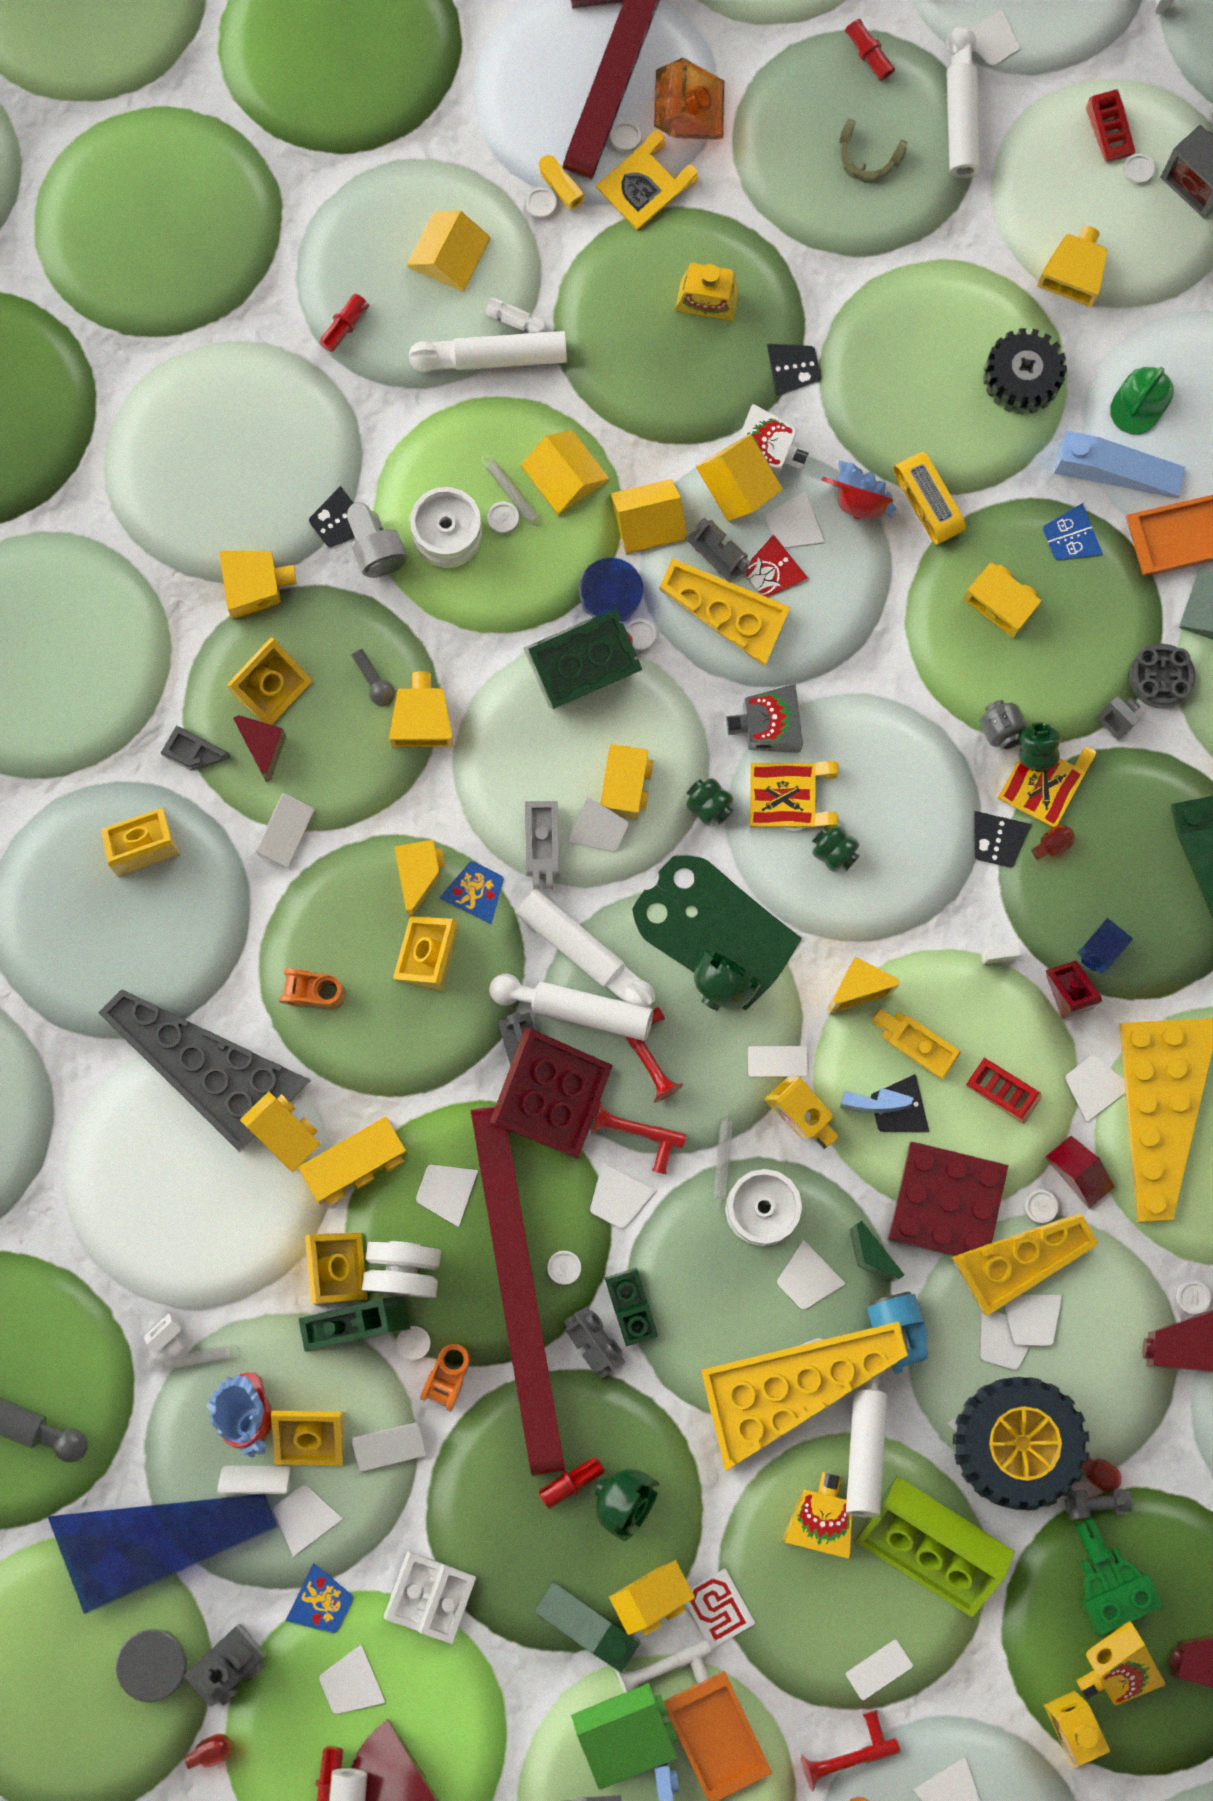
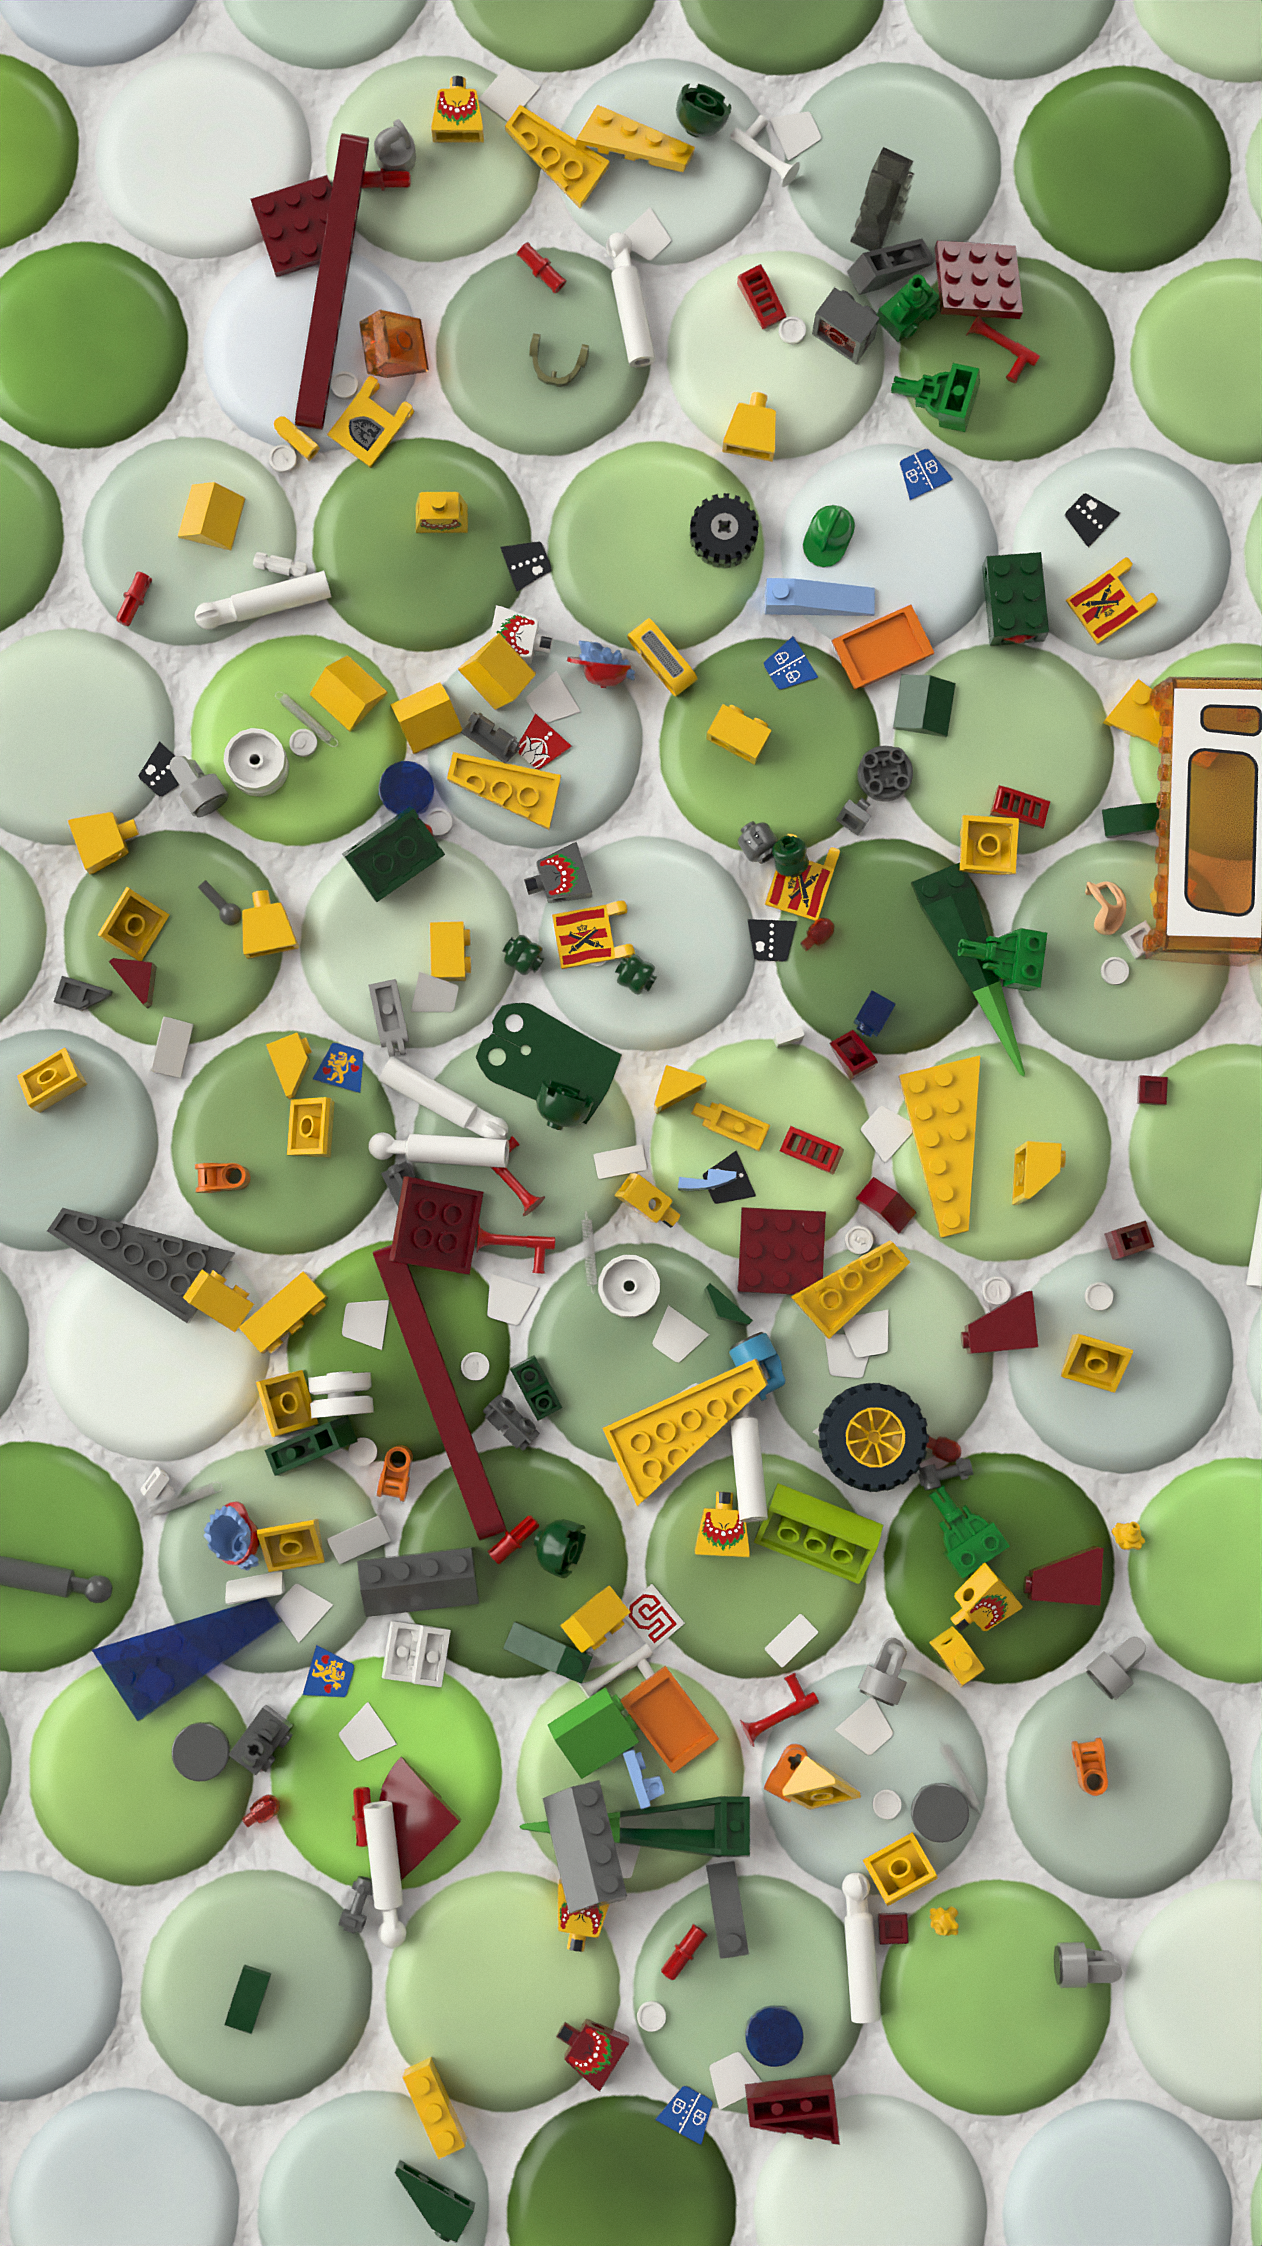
camera: 10 degrees left, 5 degrees up
(449, 1511) = (418, 1581): none -> dark grey slope
(982, 1738) = (882, 1679): none -> light grey piece

